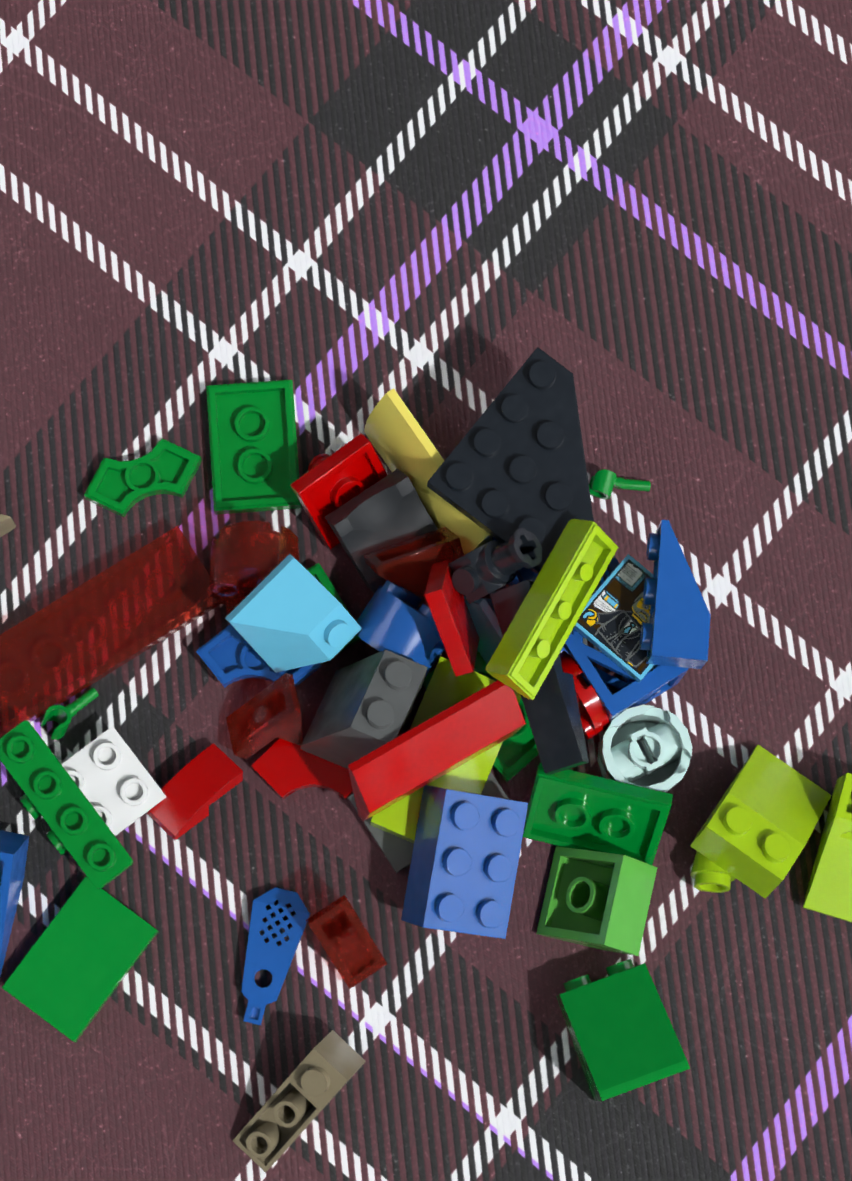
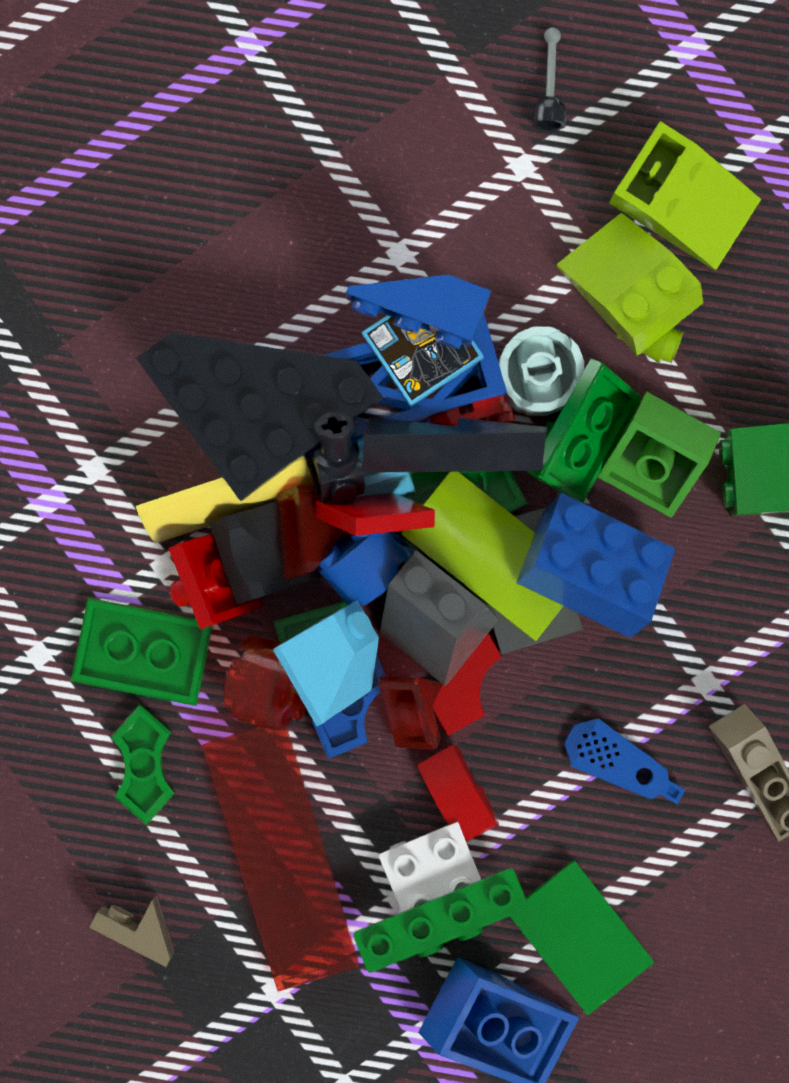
camera: 75 degrees left, 10 degrees up
(64, 714) = (351, 895): green hand -> none
(346, 941) = (636, 692): clear red slope -> none
(434, 748) = (493, 563): red slope -> none
(552, 607) = (396, 419): lime slope -> none
(604, 481) = (270, 332): green hand -> none

